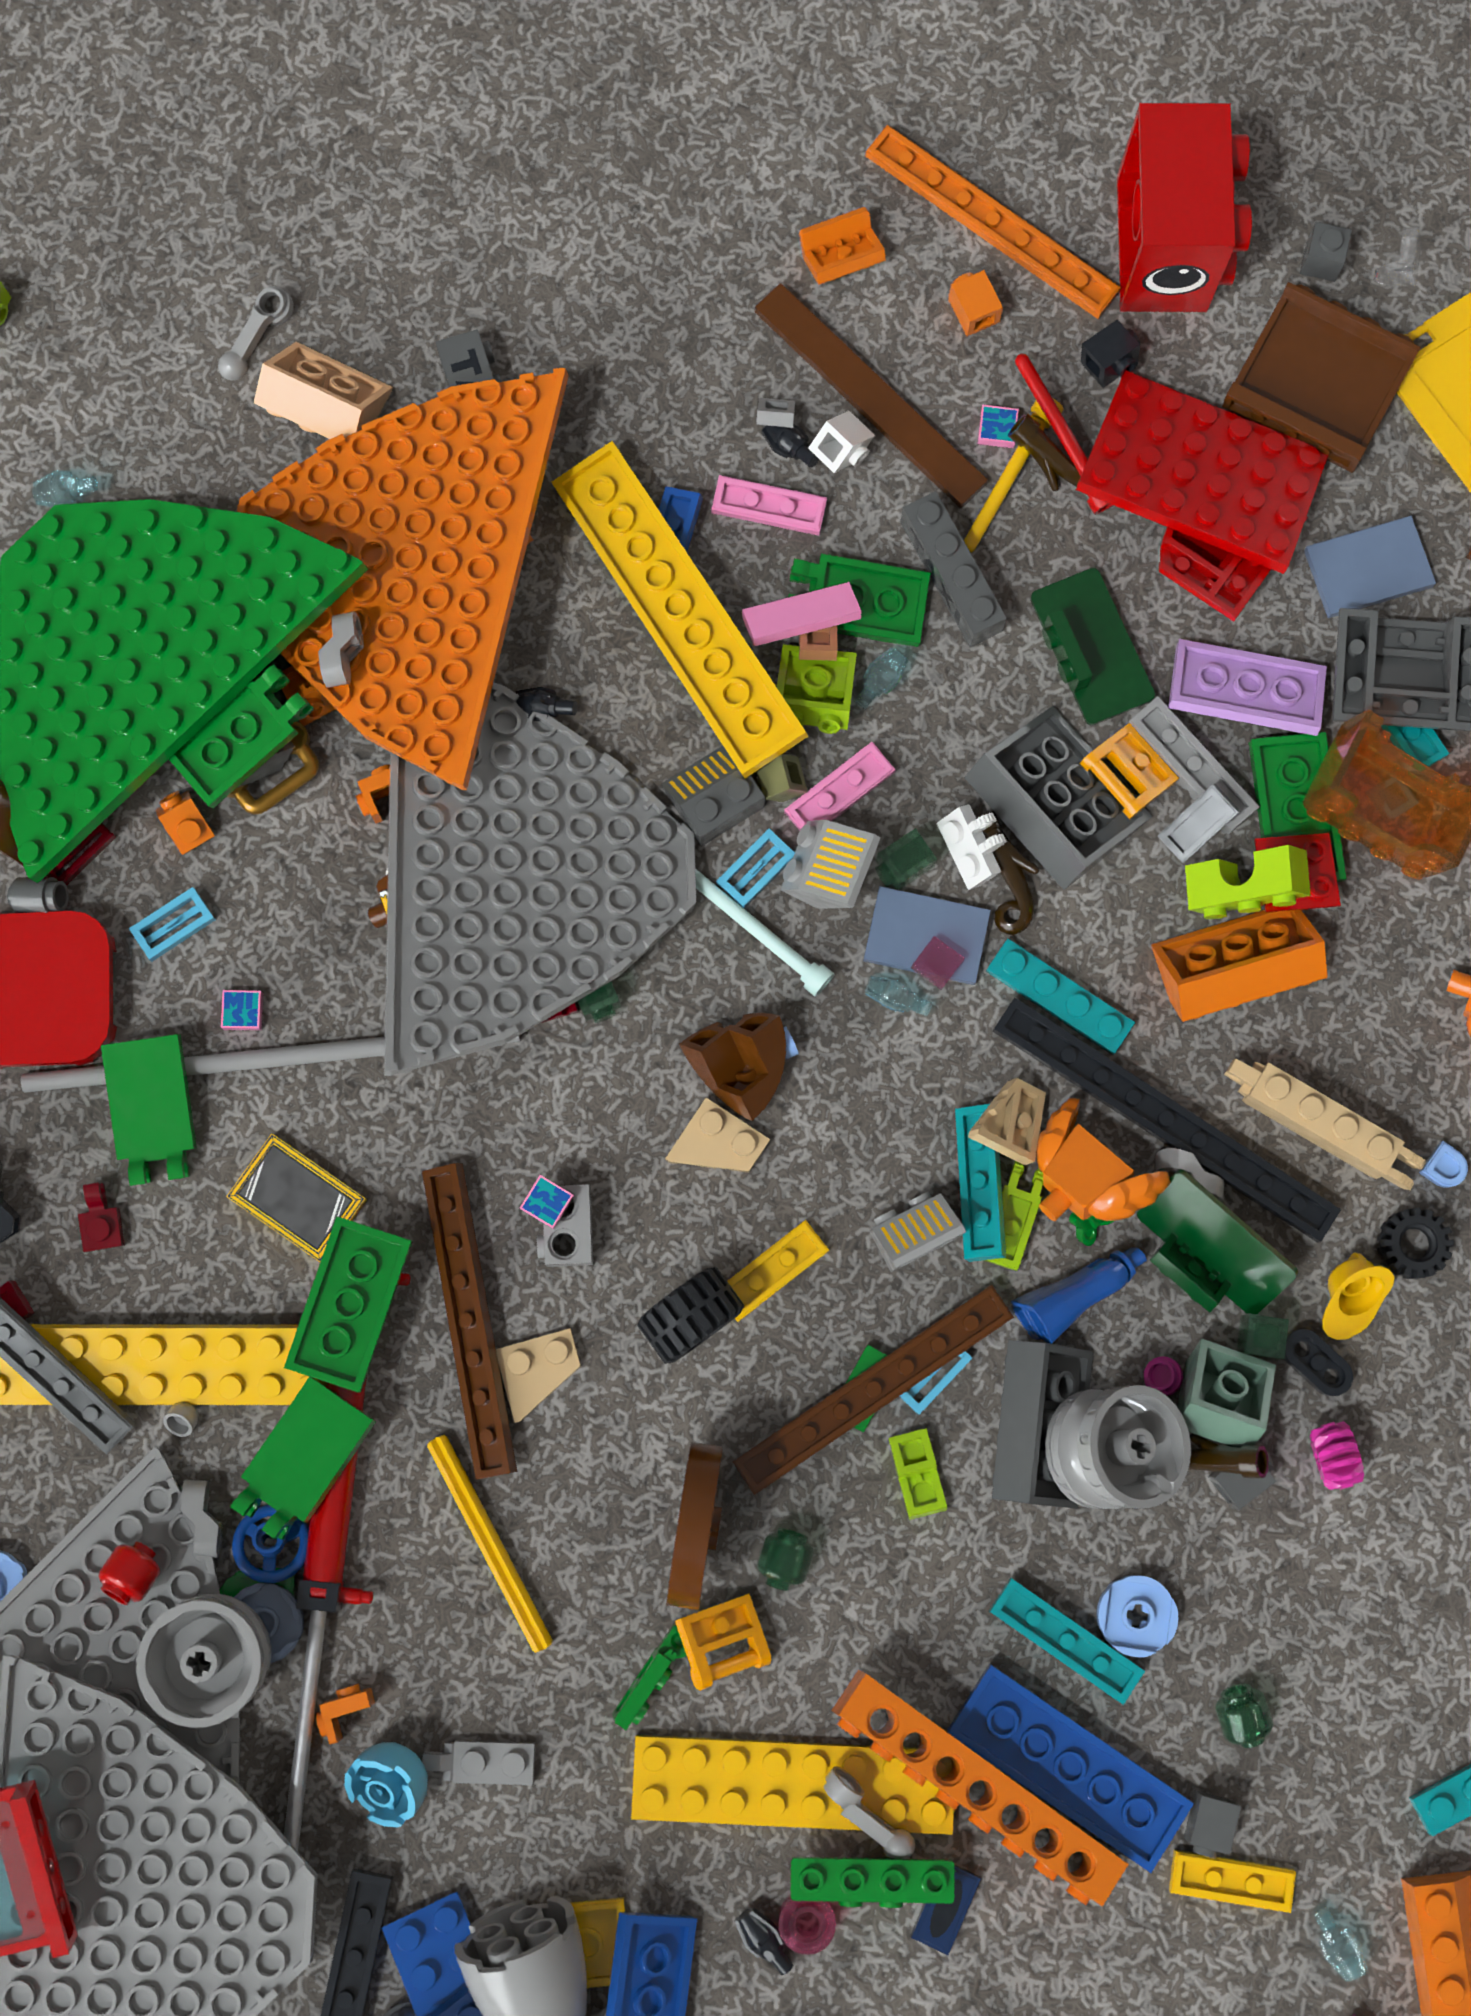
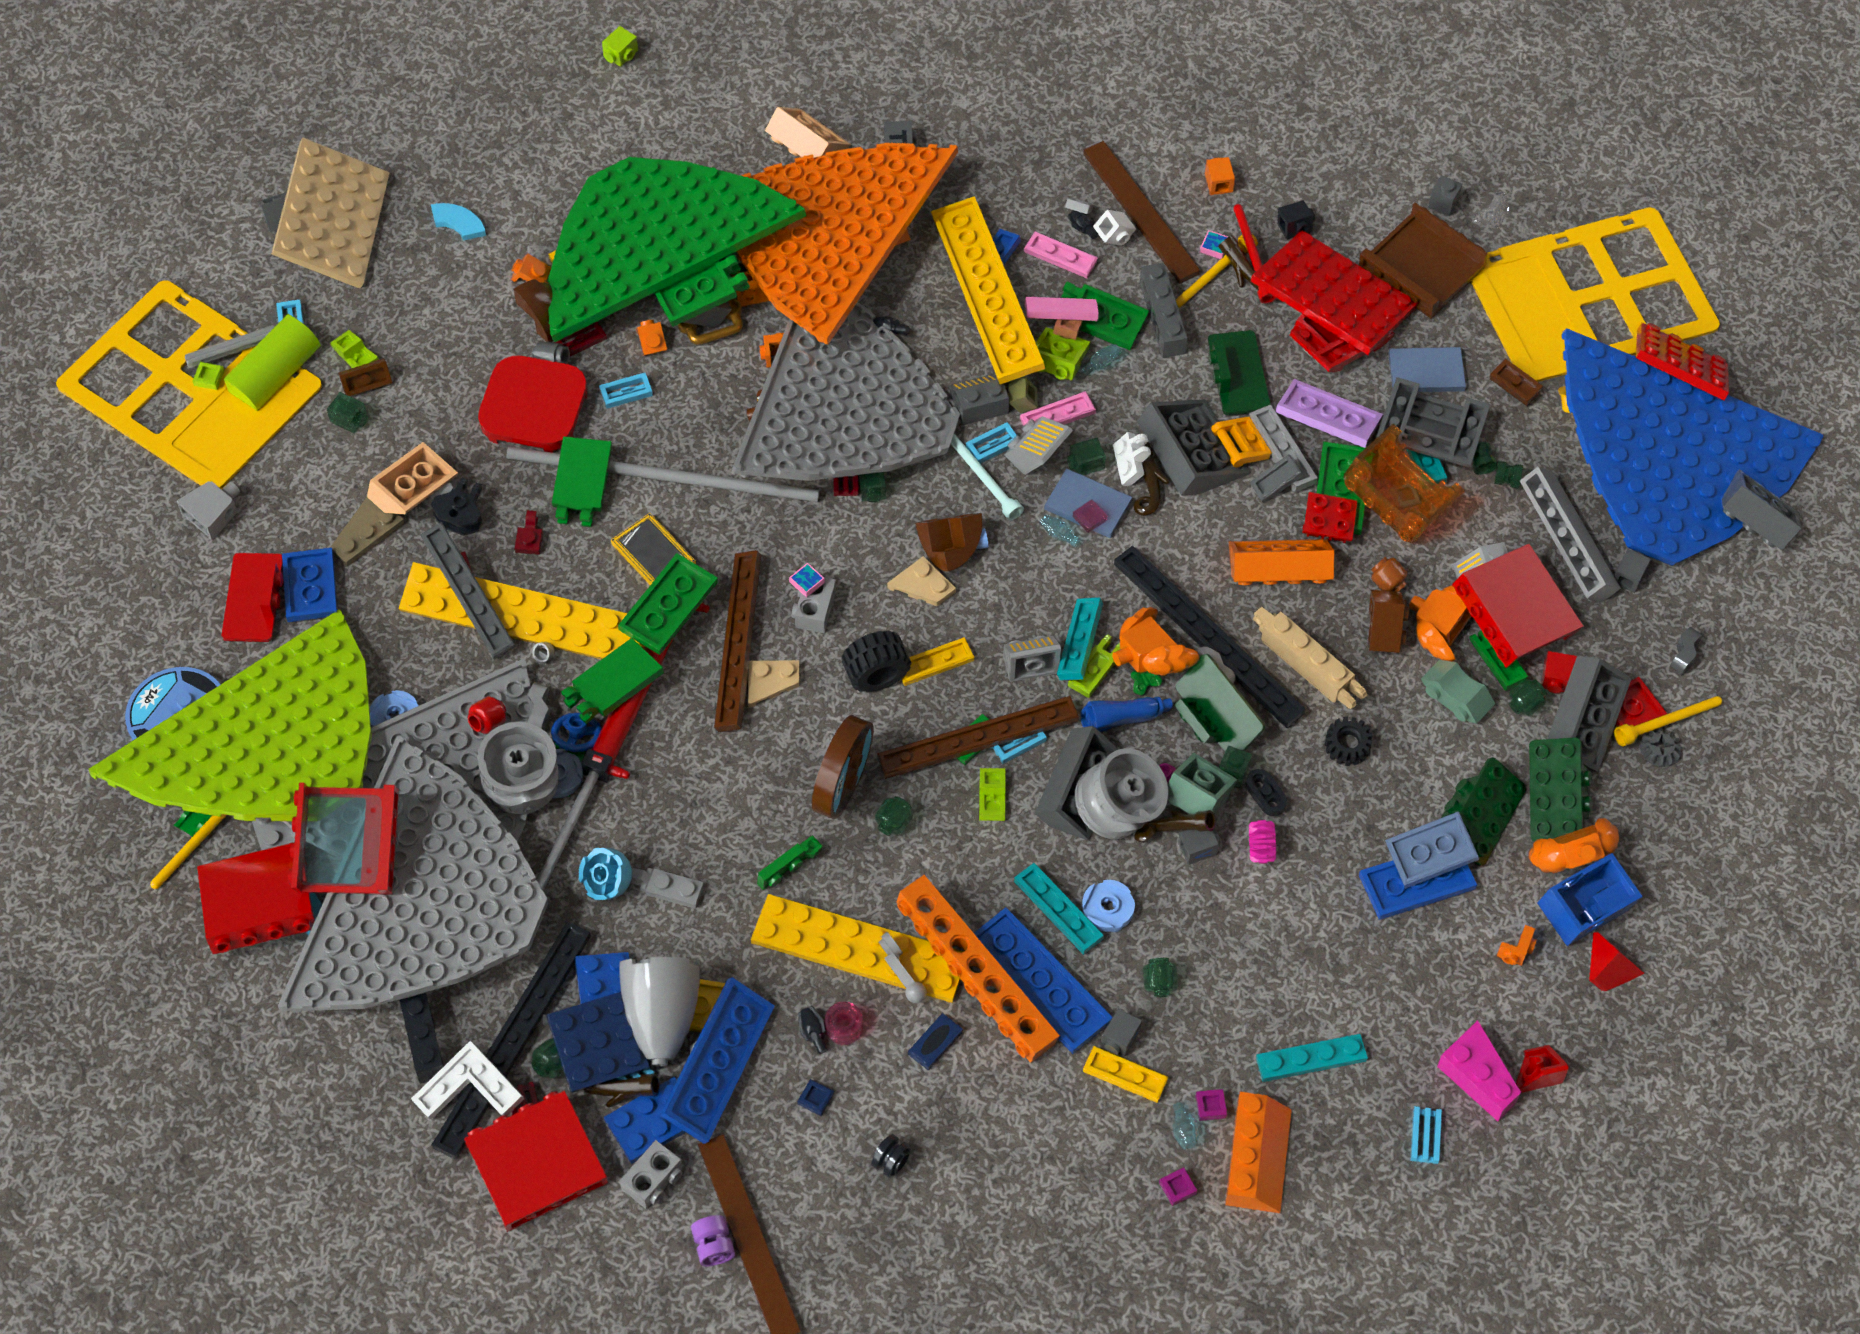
camera: 15 degrees right, 20 degrees down
(61, 488) = (635, 149): clear light blue piece -> none
(234, 363) = (759, 111): light grey piece -> none
(241, 1010) = (653, 445): tile -> none
(341, 649) = (776, 255): light grey piece -> none
(348, 1700) = (593, 829): orange bracket -> none
(490, 1543) = (711, 767): yellow axle -> none
(718, 1628) = (842, 843): light orange plate -> none
(841, 246) = (1145, 128): orange bracket -> none
(872, 1880) = (892, 1005): green bracket -> none
(992, 221) = (1244, 139): orange tile -> none
(1012, 1121) = (1109, 609): tan wing -> none
(1060, 996) = (1162, 555): teal plate -> none
(1179, 207) = (1355, 145): red brick -> none
(1277, 878) = (1279, 515): lime arch -> none
(1356, 1296) = (1300, 759): yellow piece -> none
(1369, 1900) = (1211, 1105): none -> magenta plate
(1405, 945) = (1389, 575): none -> dark orange head
(1425, 1028) = (1386, 617): none -> reddish brown brick
(1445, 1166) = (1381, 706): light blue tile -> none

